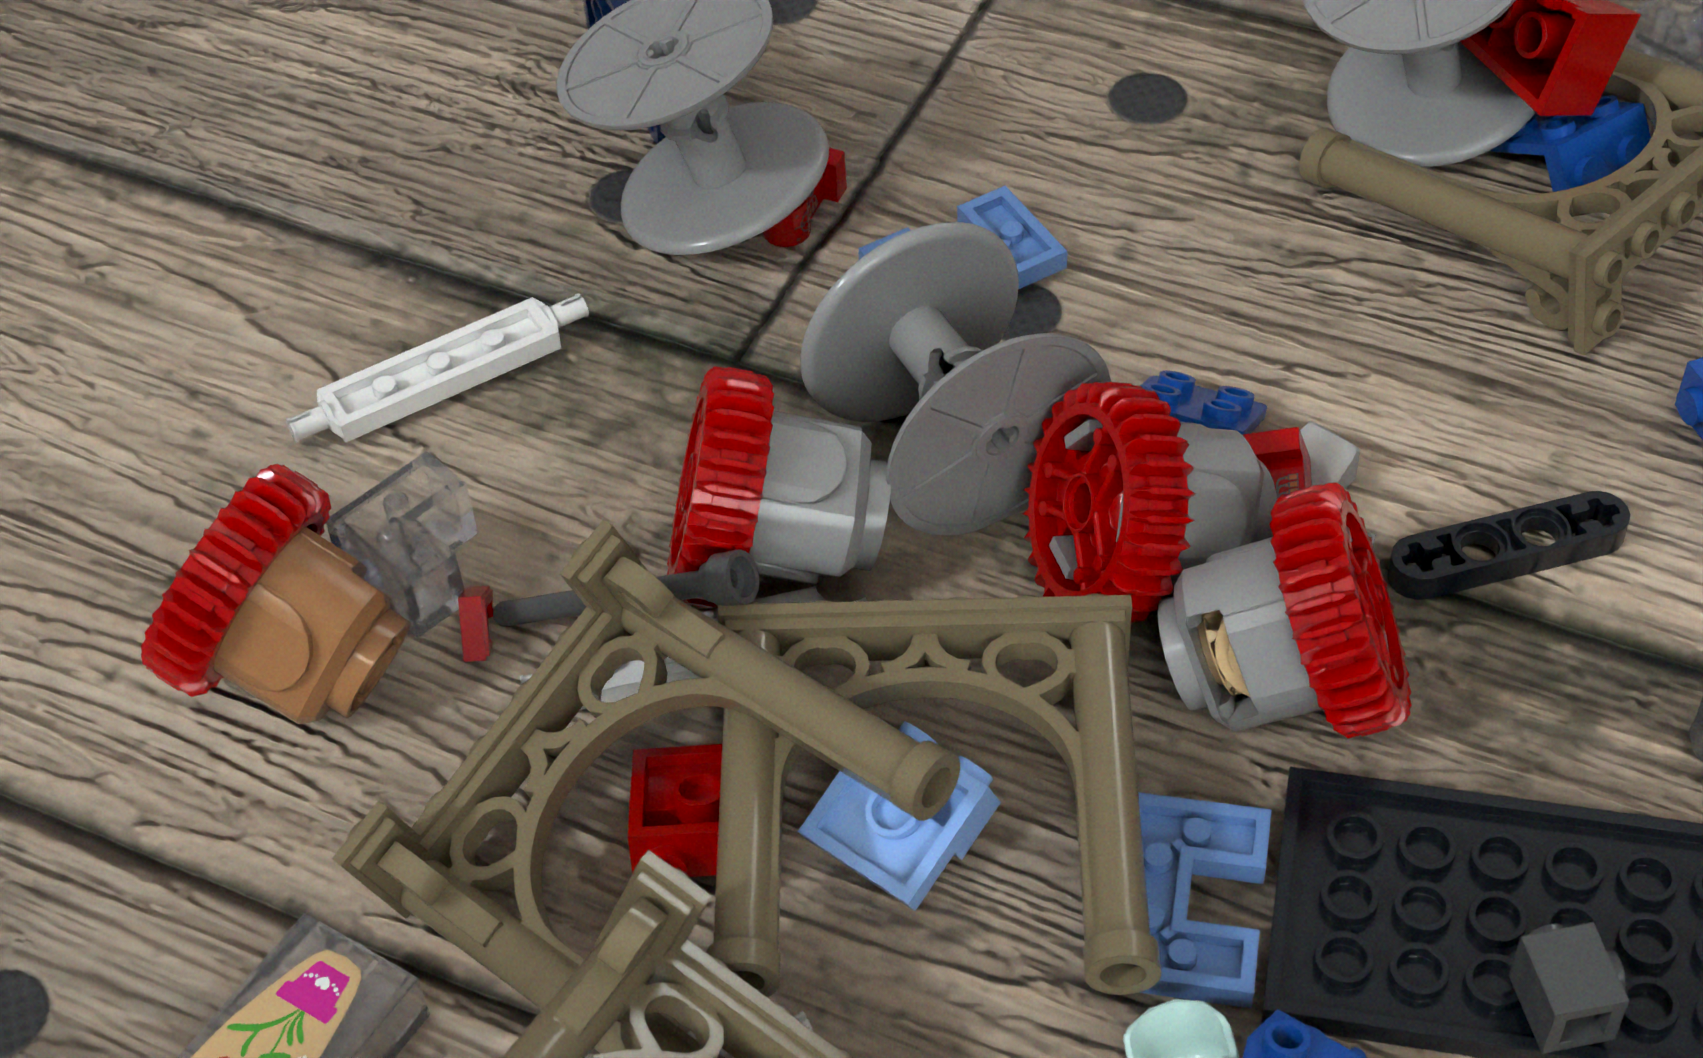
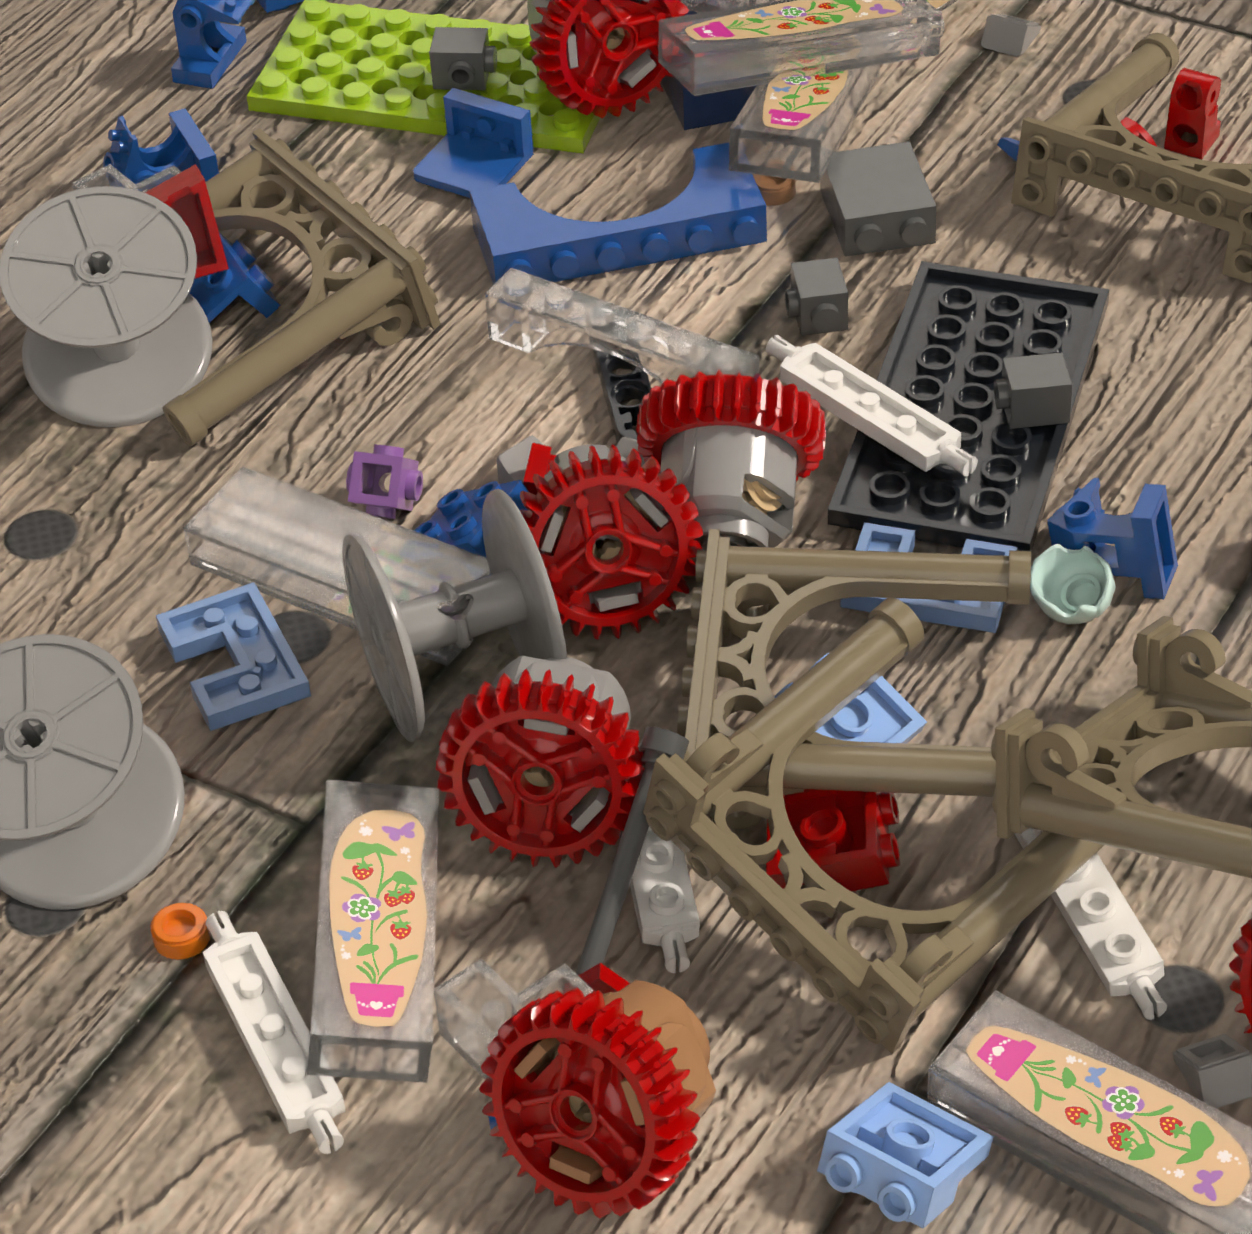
camera: 85 degrees left, 5 degrees down
(213, 908) = (902, 1154): none -> light blue plate
(537, 408) = (375, 933): none -> brick
(590, 281) = (180, 931): none -> orange tile
(1138, 274) = (294, 543): none -> clear brick
(1244, 325) = (367, 479): none -> medium lavender brick
(1484, 789) = (871, 406): none -> white plate
(1561, 527) = (540, 314): none -> clear arch

